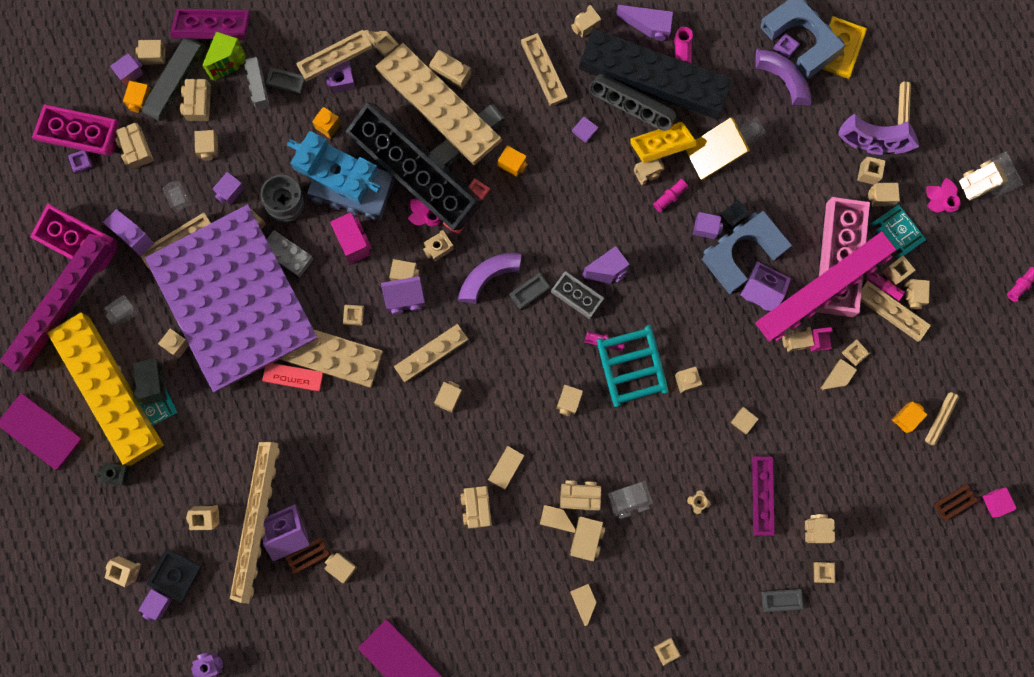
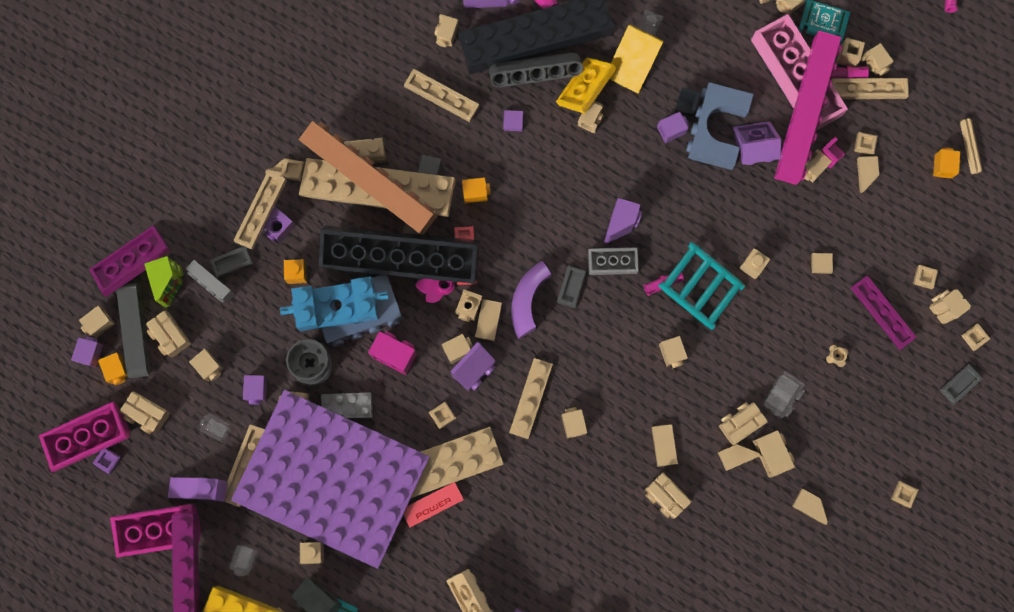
camera: 35 degrees left, 0 degrees up
(434, 89) = (367, 177): none -> nougat brick
(445, 269) = (488, 320): none -> tan tile
(670, 195) = (624, 124): dark pink pin -> none
(820, 494) = (925, 276): none -> tan tile

